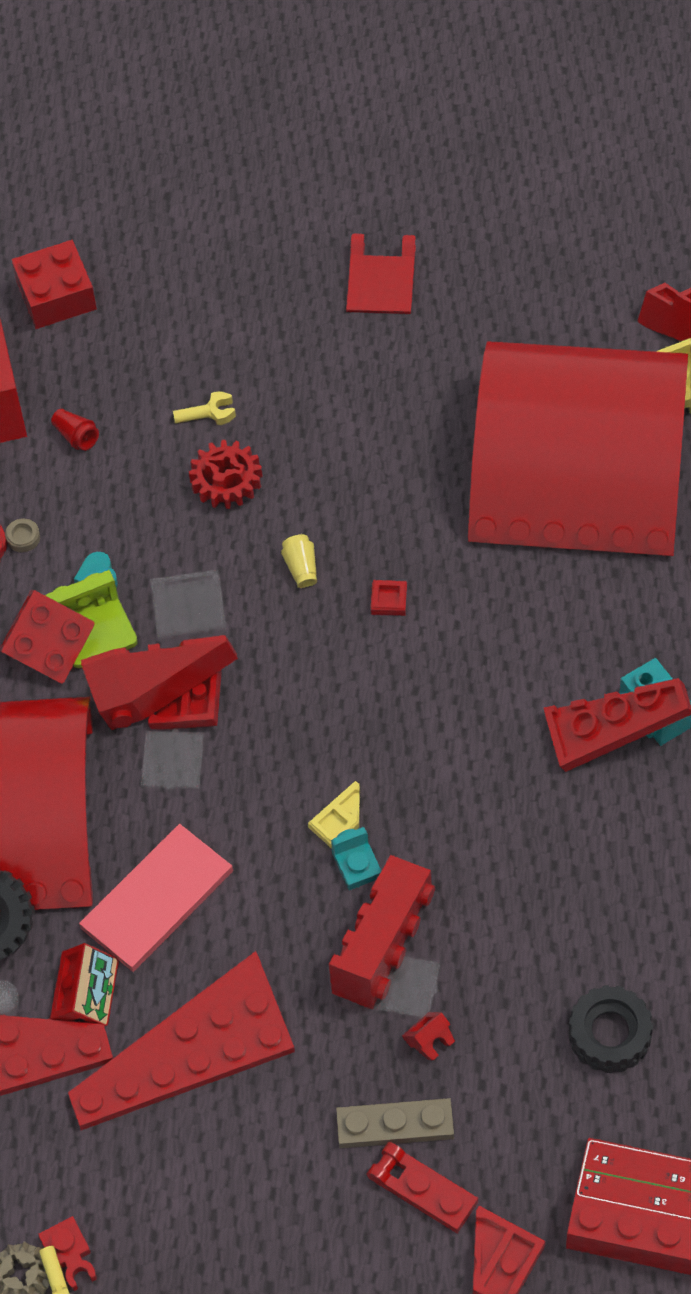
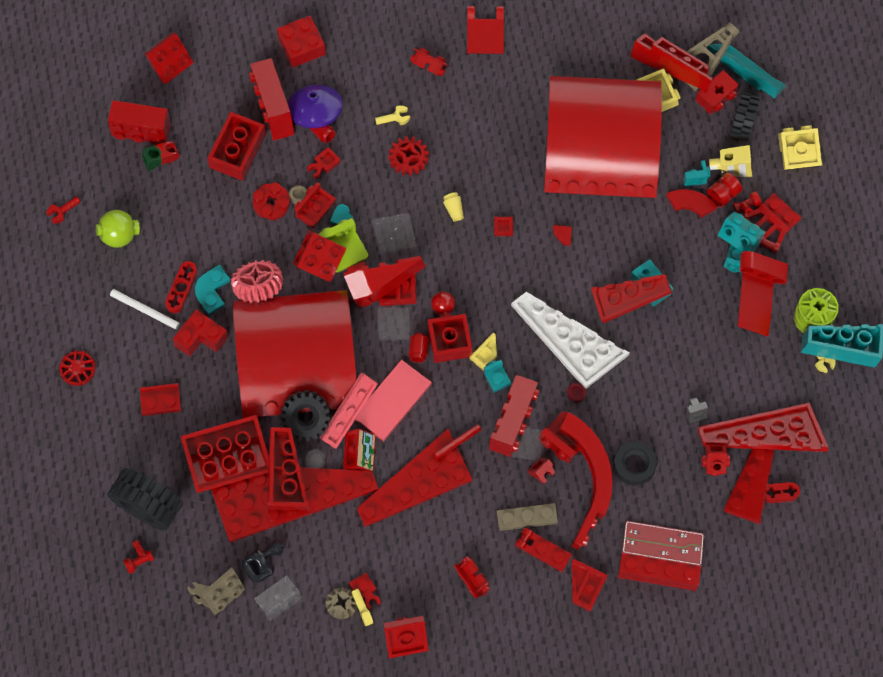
camera: 10 degrees left, 10 degrees up
(46, 551) = (314, 205): none -> red bracket
(67, 388) = (315, 106): none -> dark purple dish
(69, 910) = (348, 410): none -> coral tile
(75, 479) = (324, 161): none -> red plate
(213, 802) = (418, 347): none -> red brick
(267, 314) = (422, 58): none -> red hinge
(269, 775) = (448, 326): none -> red brick
(269, 976) = (456, 442): none -> red bar
(284, 1247) = (477, 584): none -> red hinge
(477, 975) = (558, 444): none -> red bracket
(498, 614) = (563, 234): none -> red tile
(503, 805) = (575, 345): none -> white wing
(505, 894) = (576, 392): none -> dark red tile
(527, 997) = (598, 462): none -> red arch

